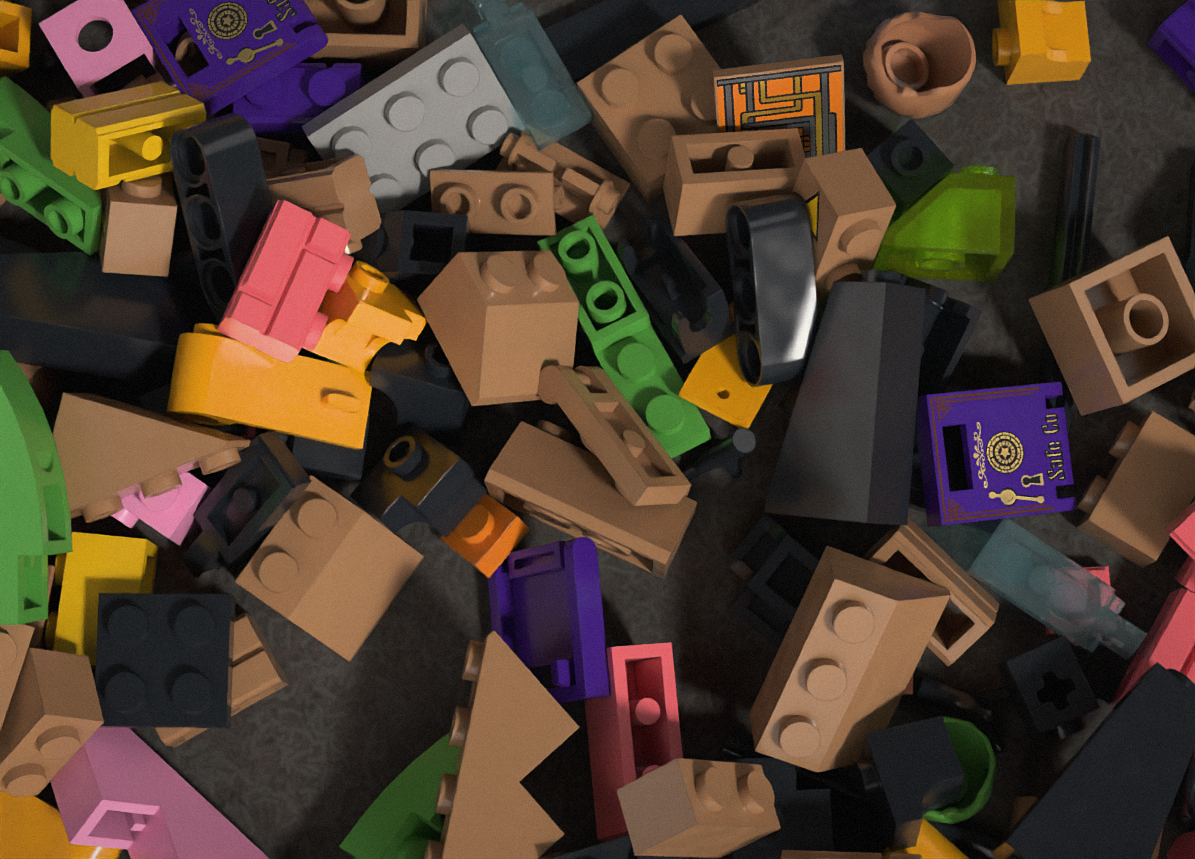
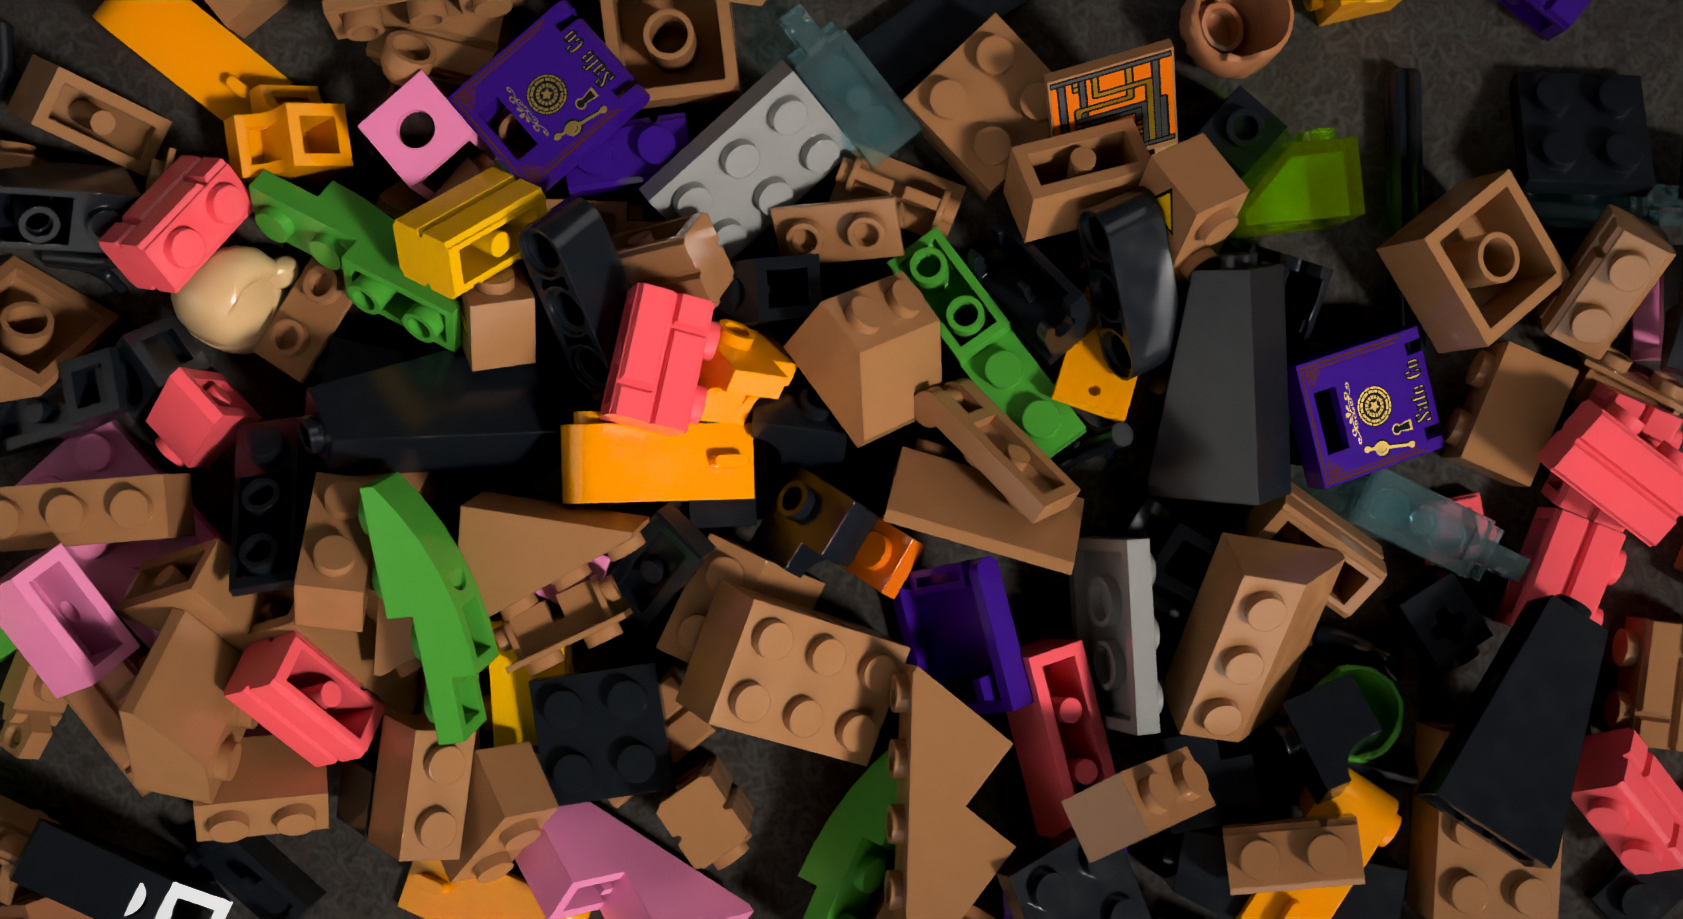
camera: 15 degrees left, 10 degrees up
(170, 538) = (587, 617): none -> medium nougat hinge
(256, 763) = (708, 815): none -> medium nougat brick
(368, 628) = (791, 675): none -> medium nougat brick
(711, 637) = (1118, 629): none -> light grey plate

